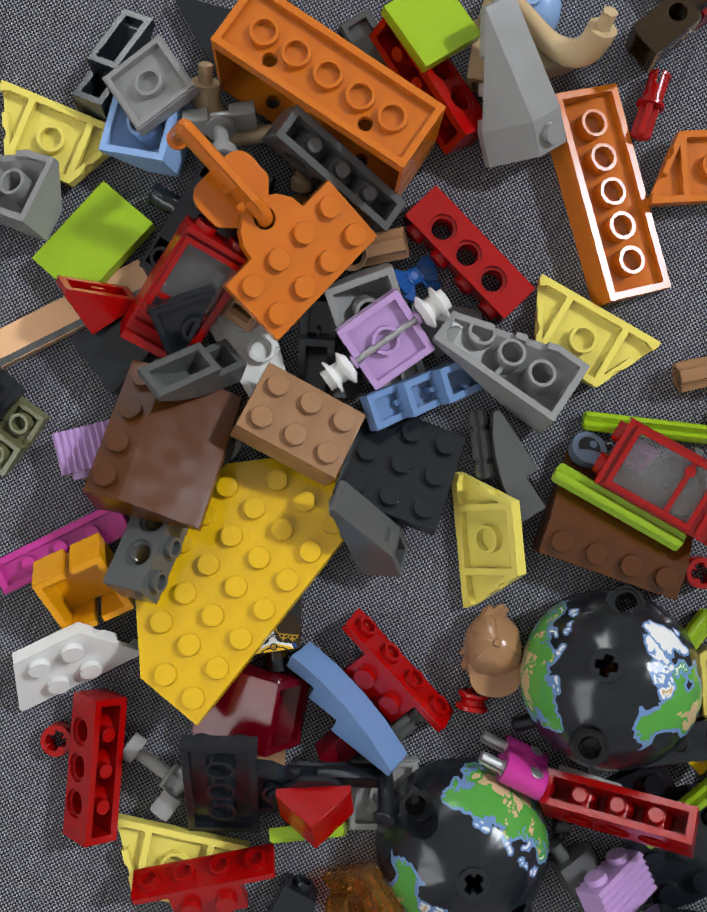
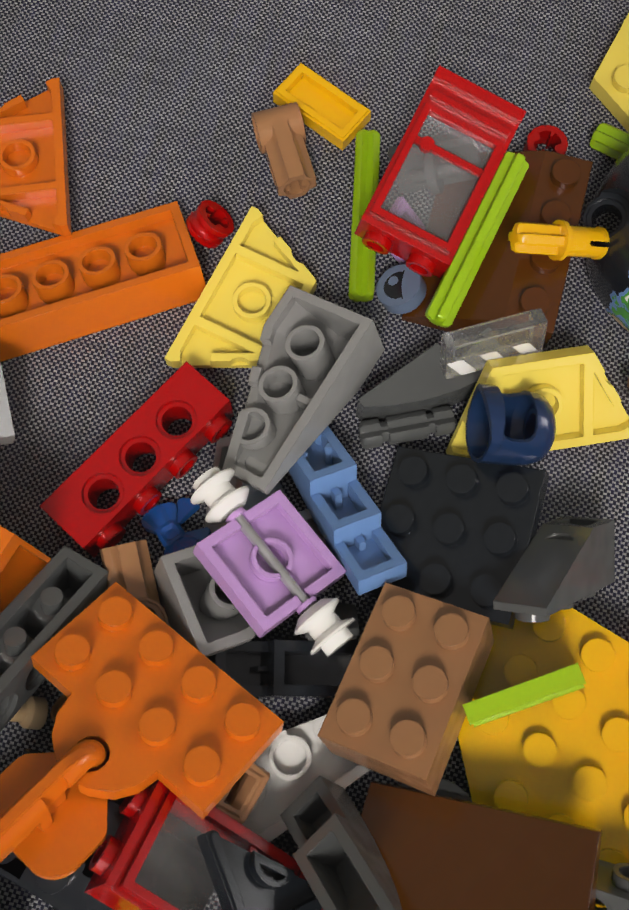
camera: 90 degrees left, 15 degrees down
(284, 495) = (524, 695): none -> lime tile
(461, 511) = (509, 427): none -> dark blue helmet
(534, 516) = (470, 347): none -> clear tile
(606, 561) = (558, 240): none -> yellow axle
(643, 304) = (210, 224): none -> red bush

